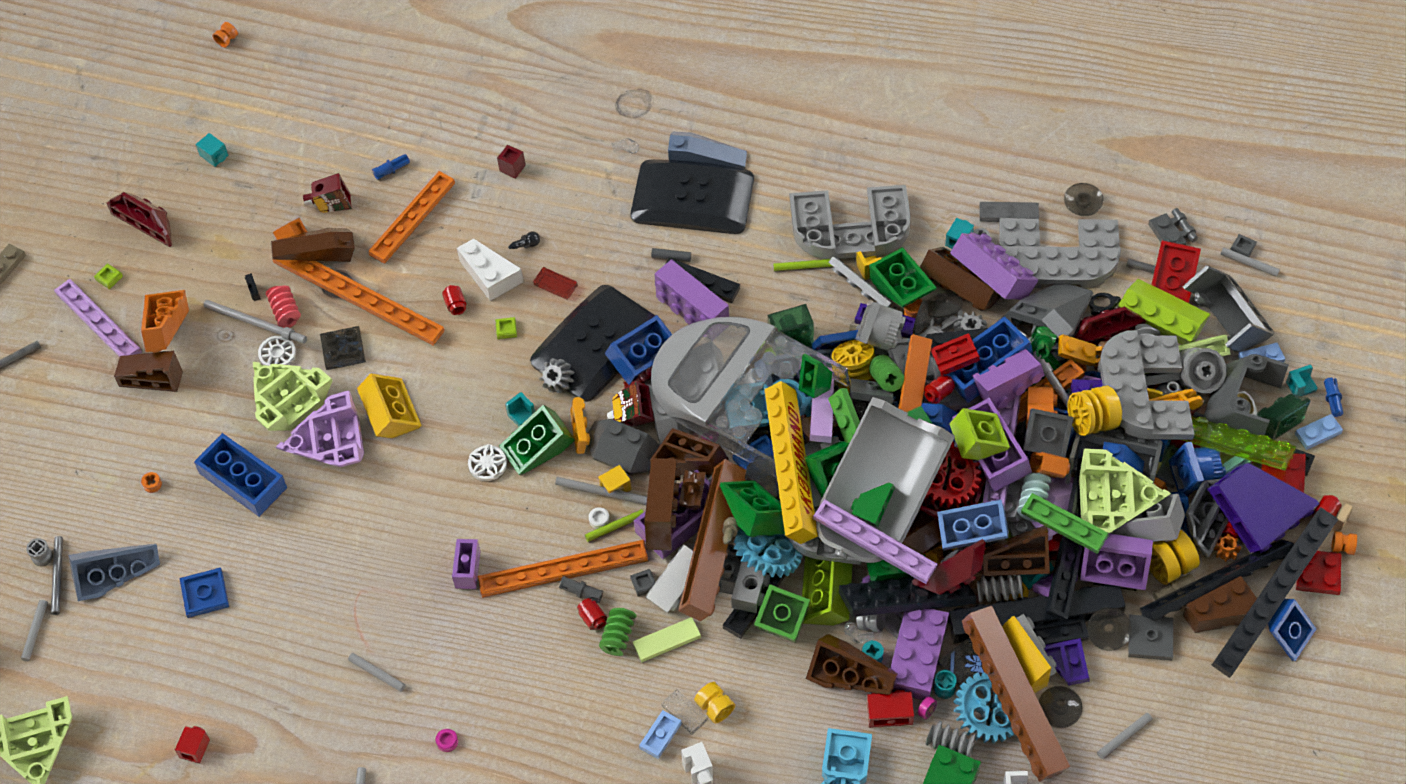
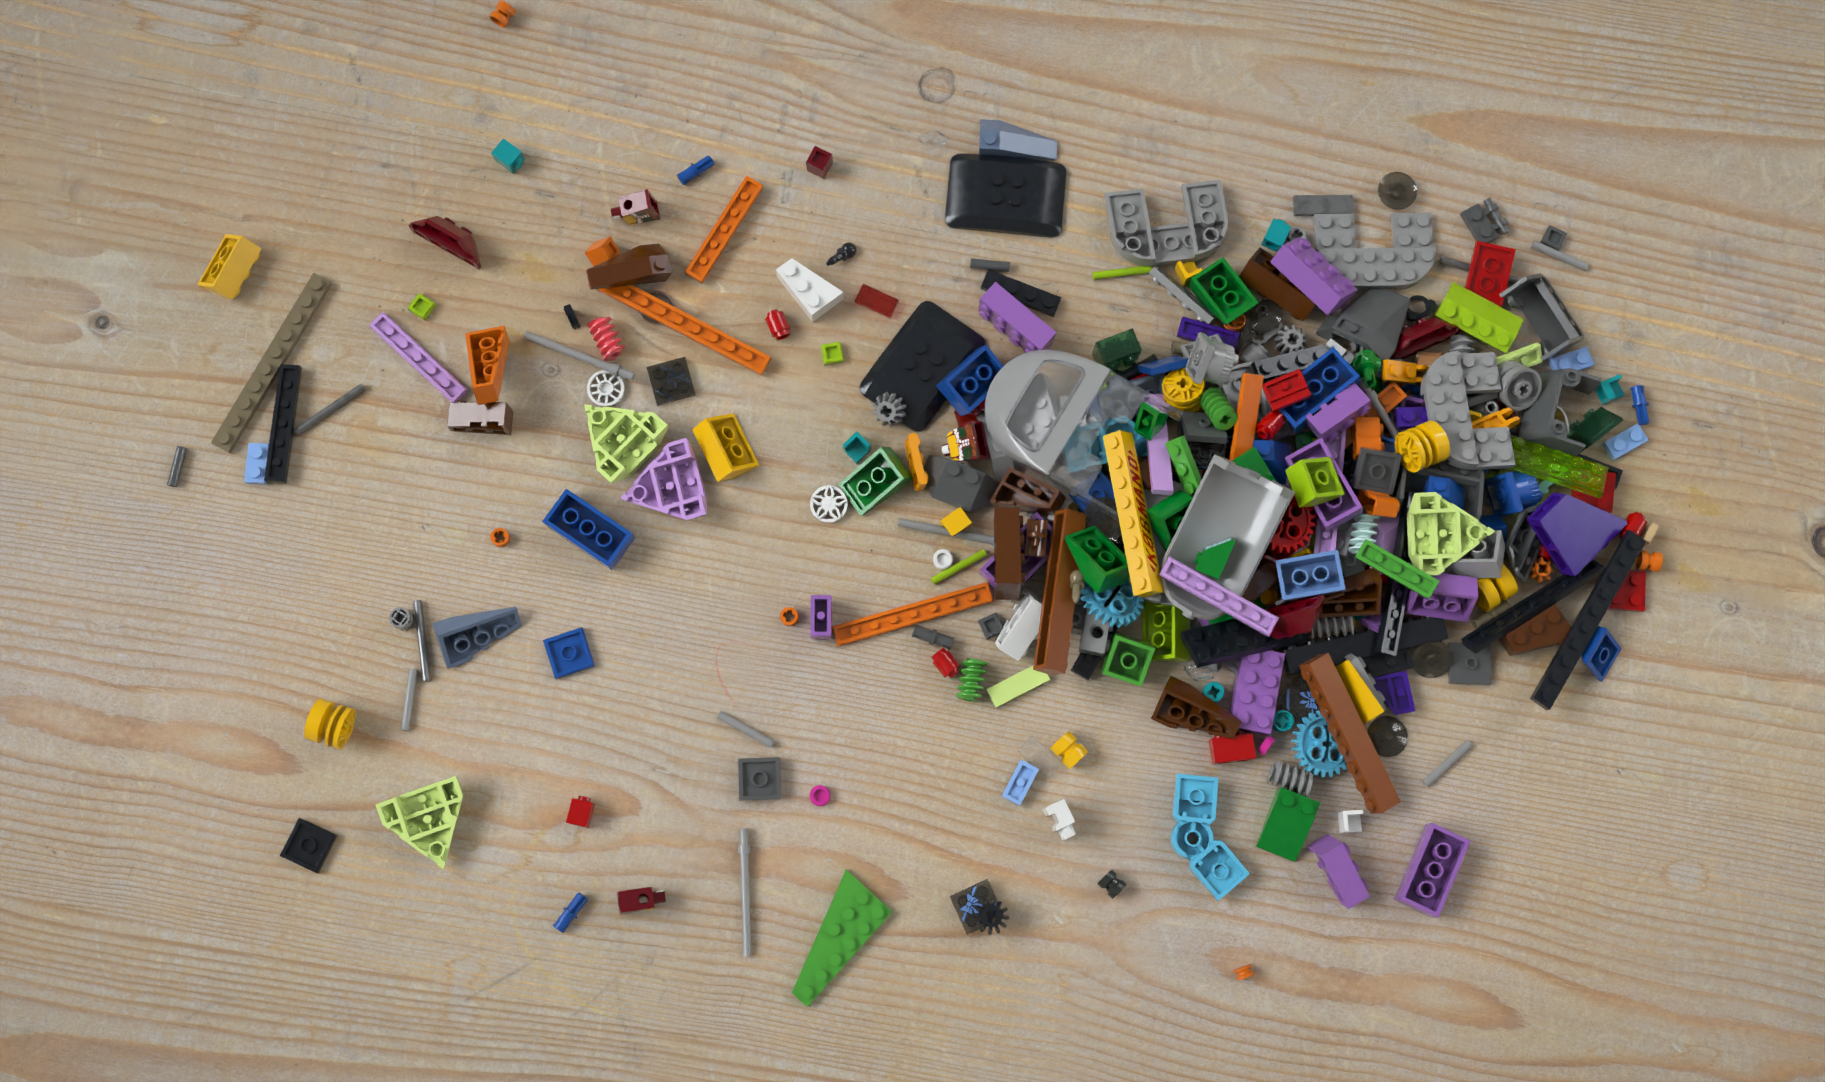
camera: 10 degrees left, 20 degrees up
(384, 720) = (759, 779): none -> dark grey plate
(438, 571) = (794, 613): none -> orange bush

